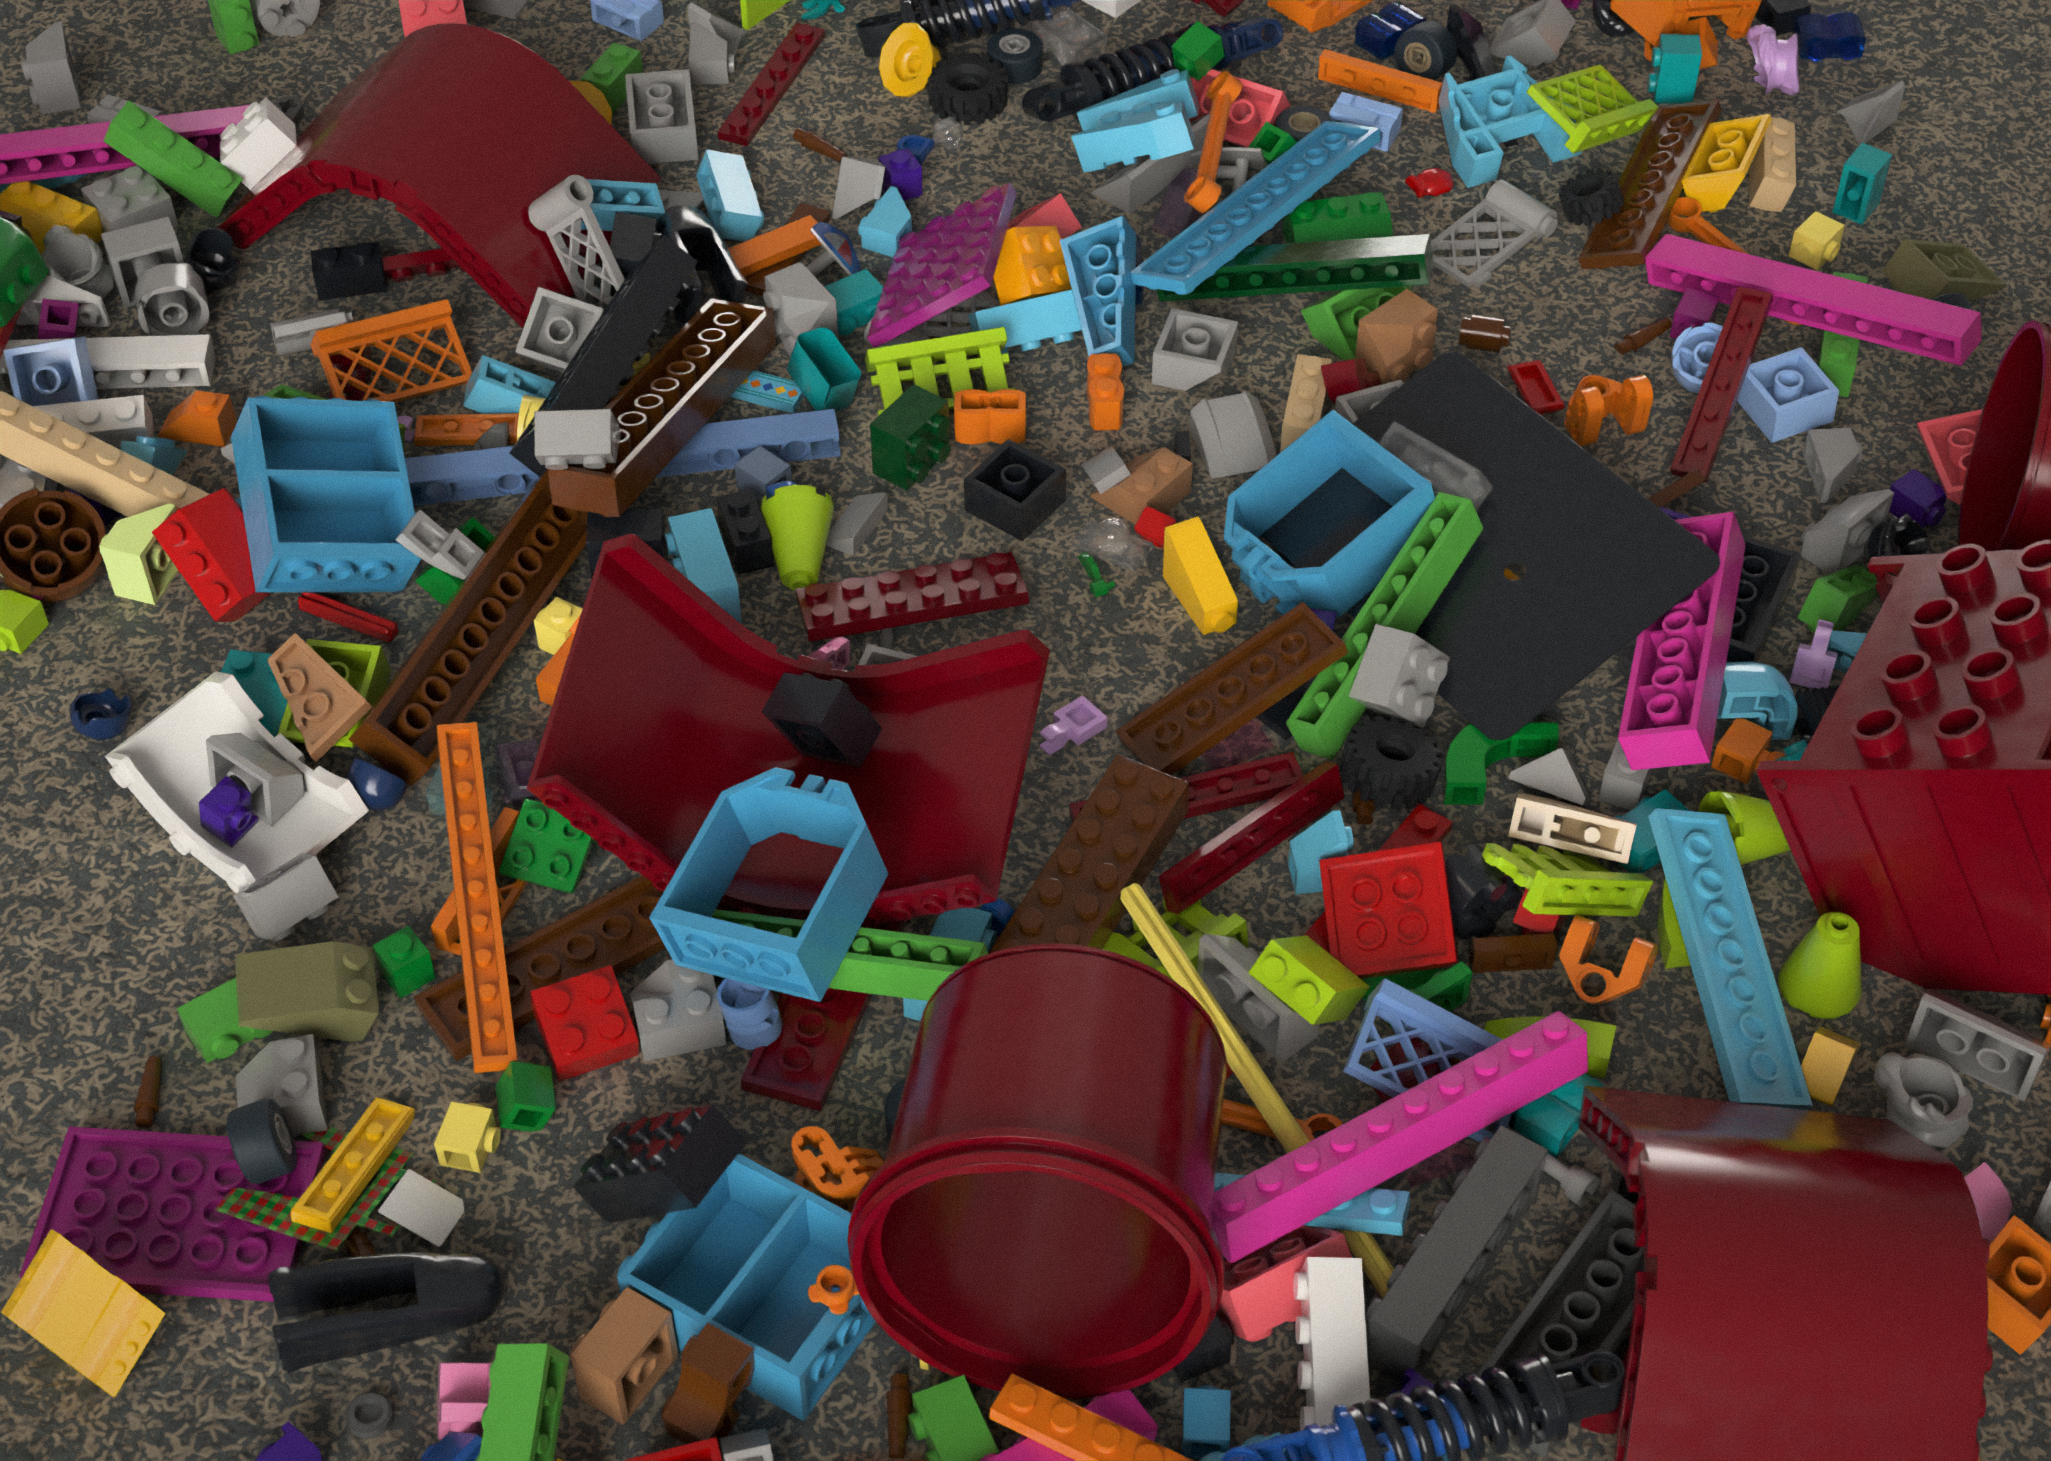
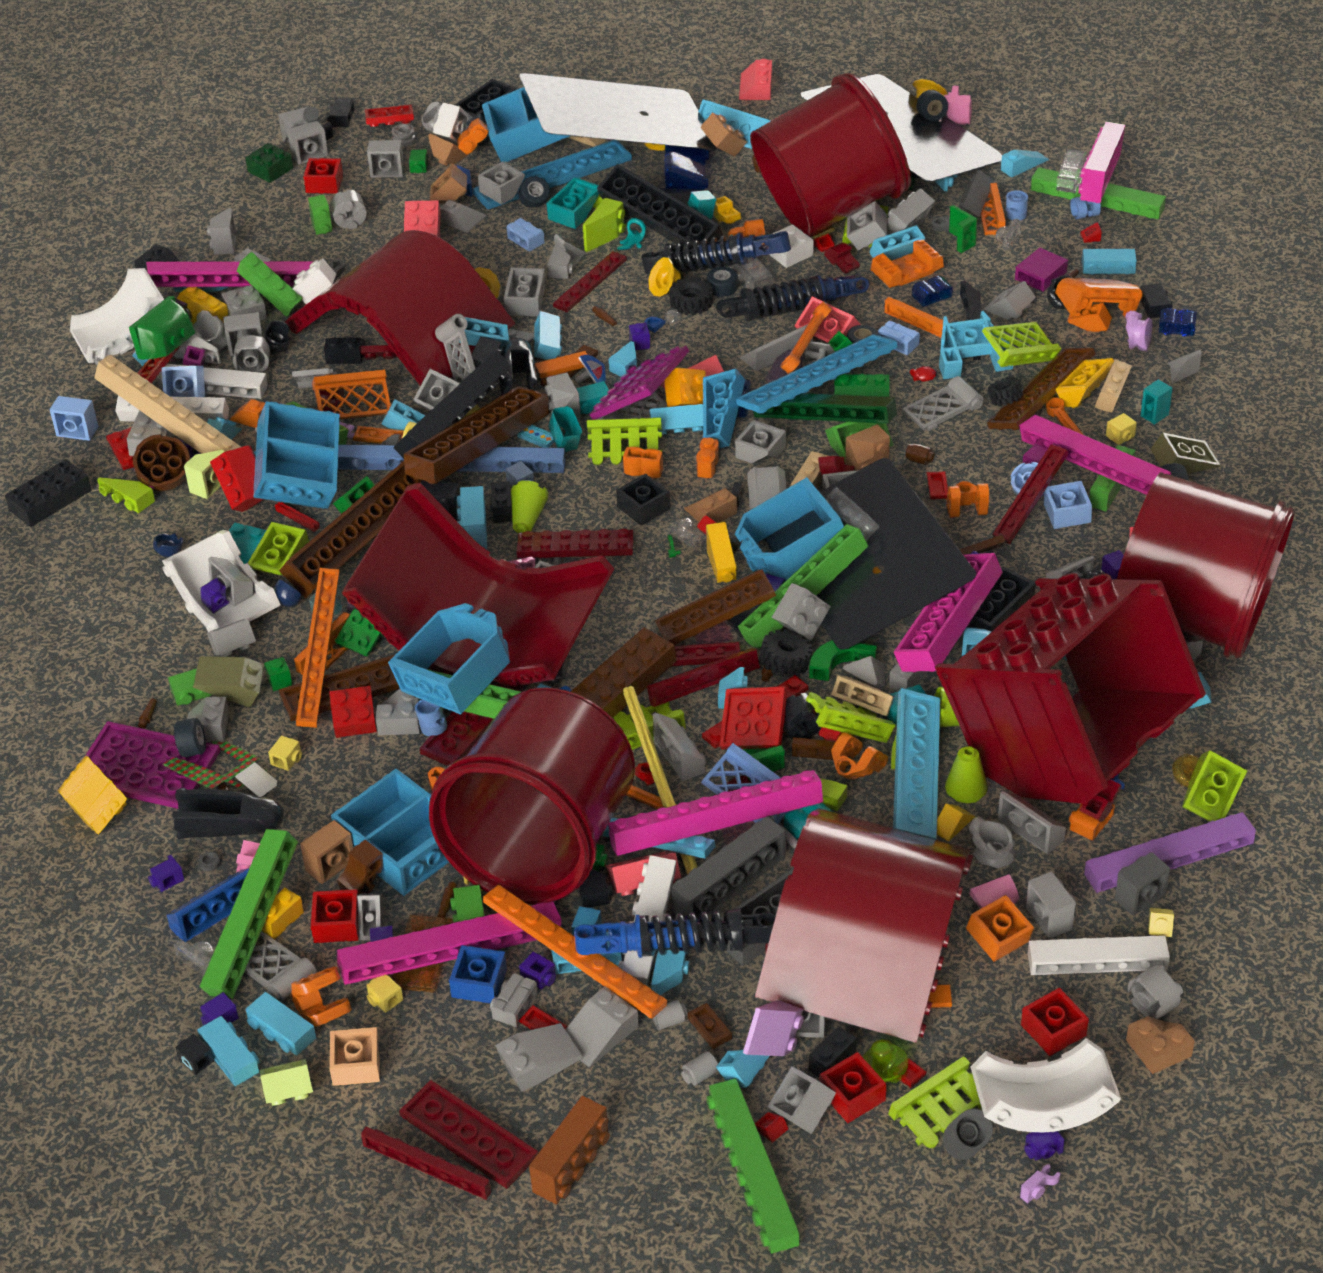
camera: 15 degrees right, 5 degrees down
(318, 696) = (268, 548): medium nougat wing -> none
(352, 1165) = (230, 756): yellow tile -> none
(443, 550) = (344, 486): light grey slope -> none
(525, 1096) = (316, 739): green brick -> none
(576, 438) = (420, 441): light grey slope -> none
(610, 70) = (502, 266): bright green brick -> none
(659, 1164) = (364, 771): black brick -> none
(822, 719) = (501, 588): black brick -> none
(829, 1278) = (424, 834): orange plate -> none
(857, 184) = (614, 337): light grey slope -> none
(857, 522) = (561, 506): light grey slope -> none
(910, 437) = (597, 466): dark green brick -> none
(1074, 721) = (635, 613): lavender plate -> none
(1105, 469) = (693, 495): light grey slope -> none
(1139, 123) = (771, 323): medium azure wedge -> none
(1197, 51) = (812, 289): green brick -> none
(1308, 979) = (700, 740): lime brick -> none
(1426, 50) = (945, 303): black wheel -> none
(1642, 336) = (1004, 467): reddish brown animal -> none
(1675, 68) = (1078, 329): teal brick -> none
(1831, 459) = (1080, 540): light grey slope -> none

